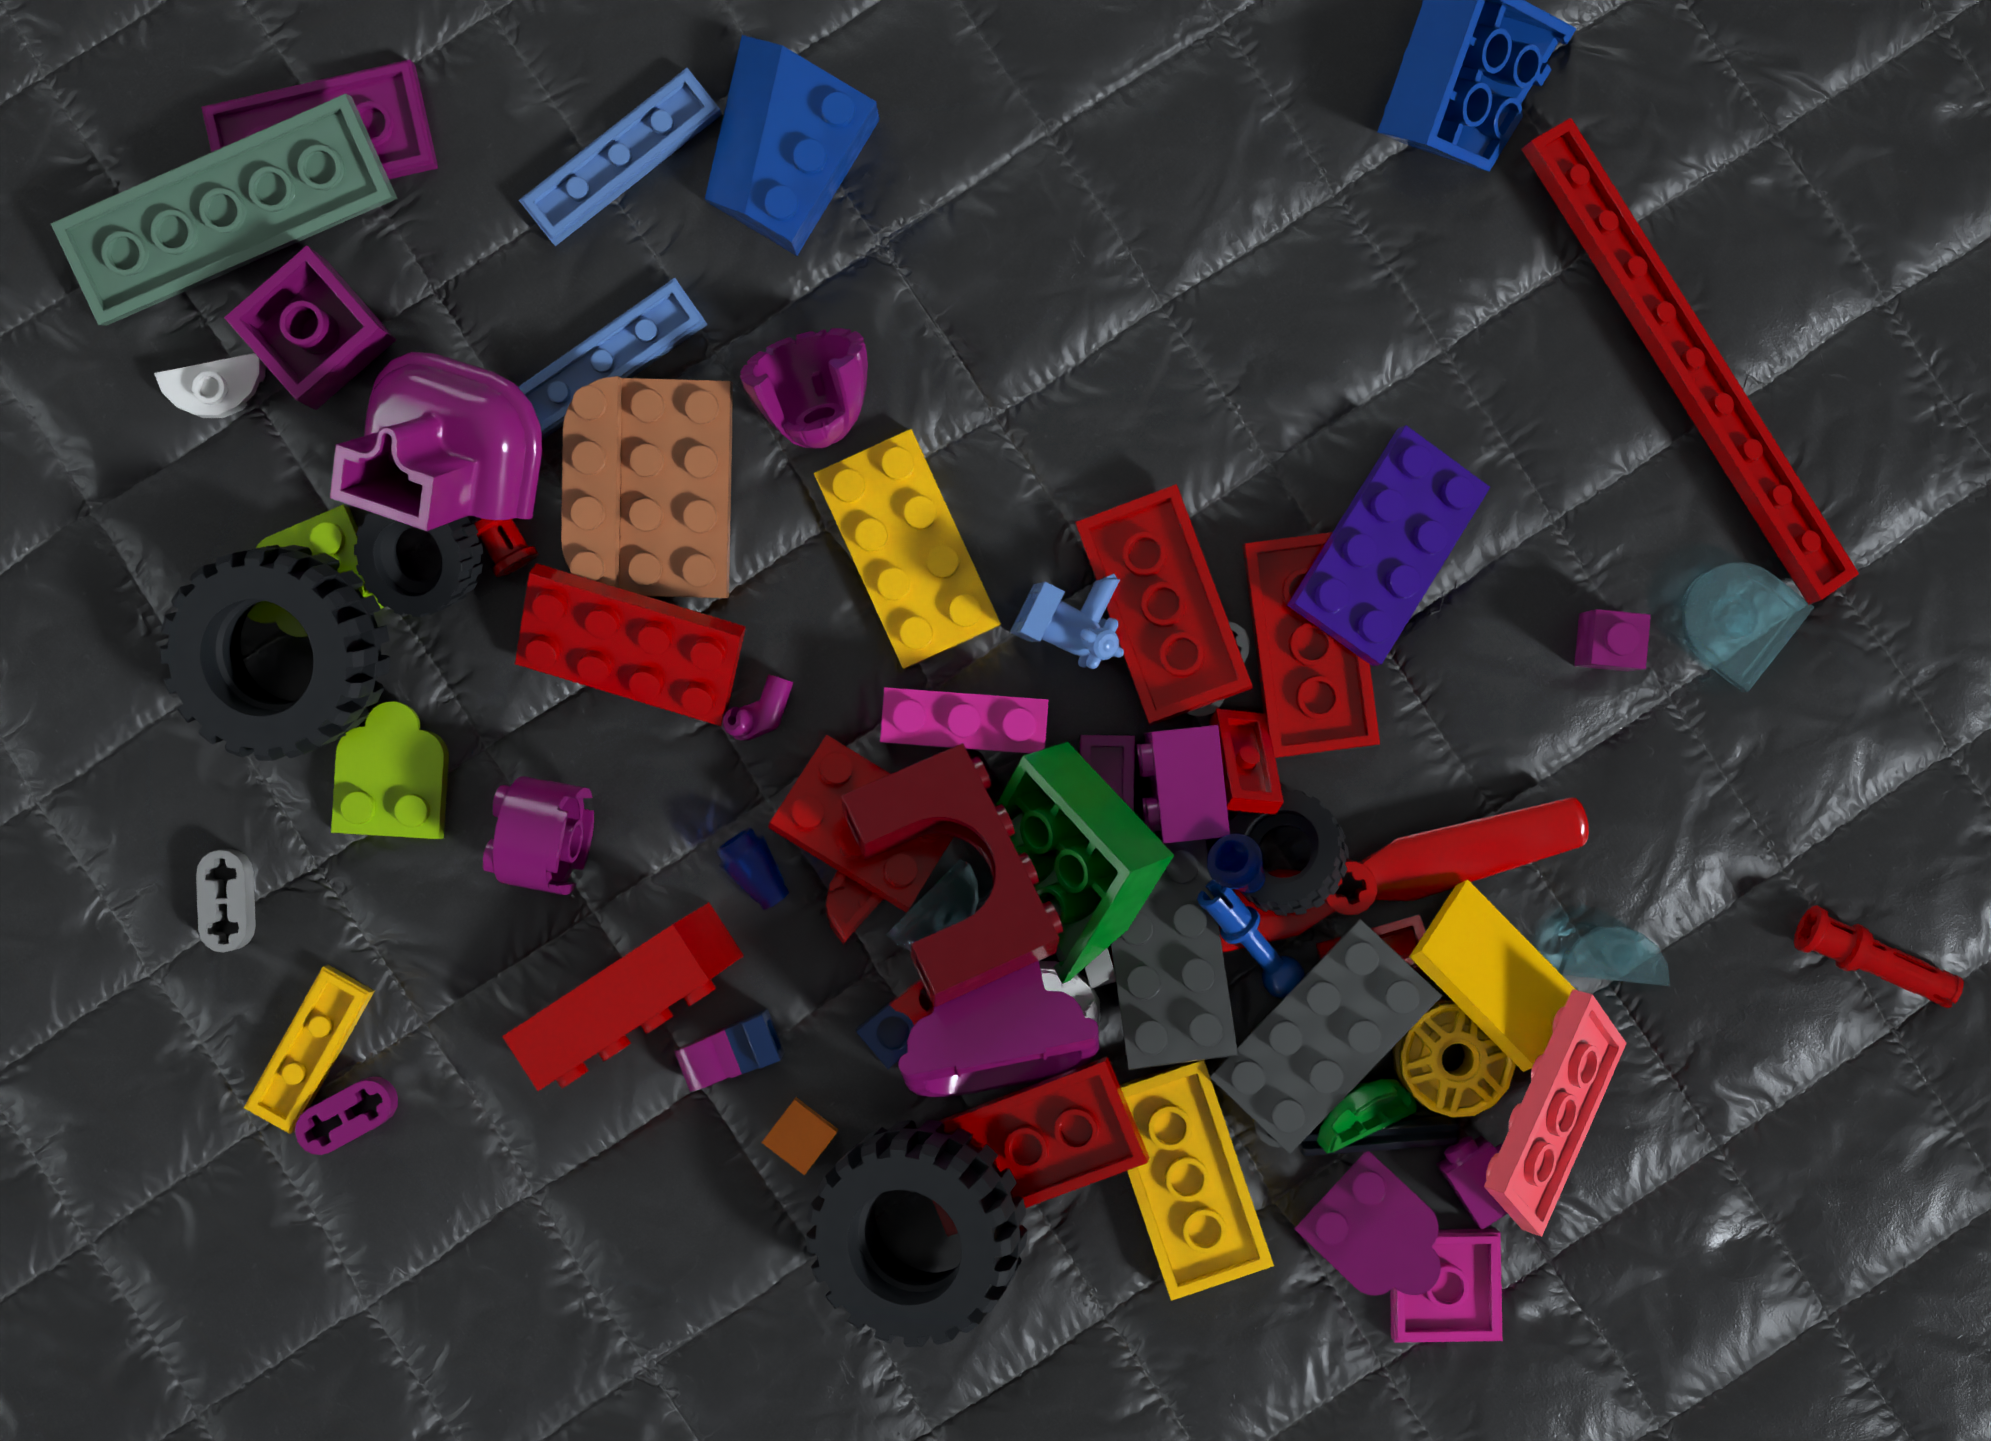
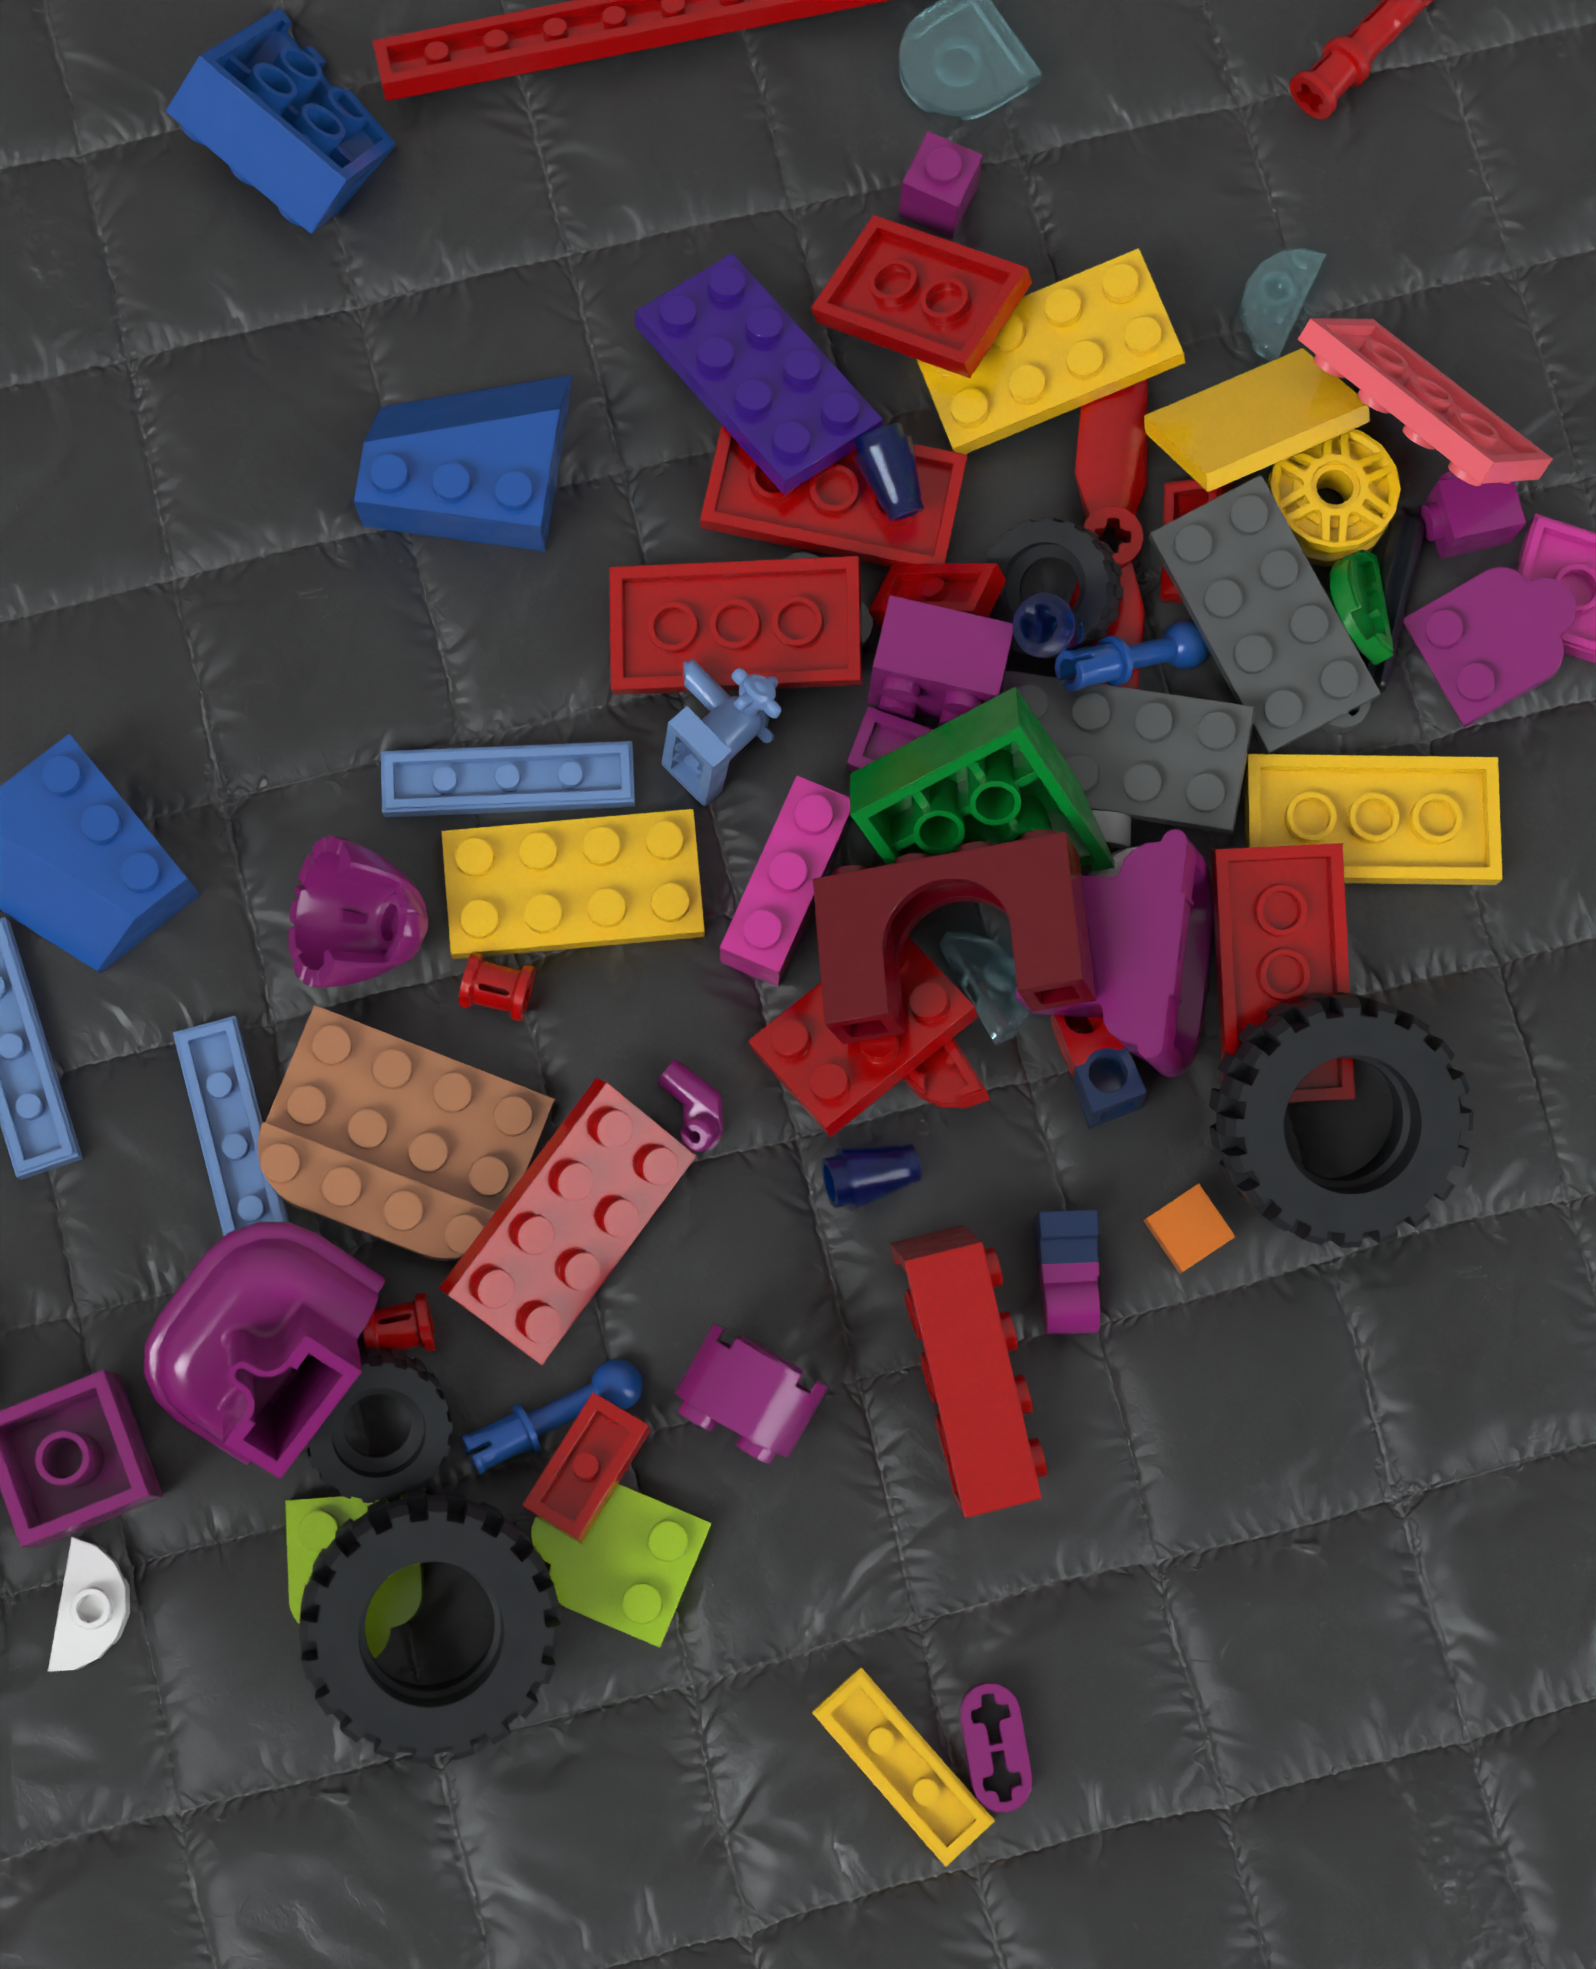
camera: 80 degrees left, 10 degrees down
(212, 900) = (689, 1820): light grey beam -> none
(442, 728) = (586, 1467): none -> red plate
(520, 725) = (519, 1432): none -> blue pin
(799, 519) = (496, 986): none -> red bush
(975, 465) = (507, 779): none -> medium blue tile
(1230, 335) = (467, 464): none -> blue wedge
(1337, 687) = (891, 470): none -> clear blue cone
(1493, 781) = (1059, 354): none -> yellow plate
(1504, 659) = (921, 295): none -> red plate

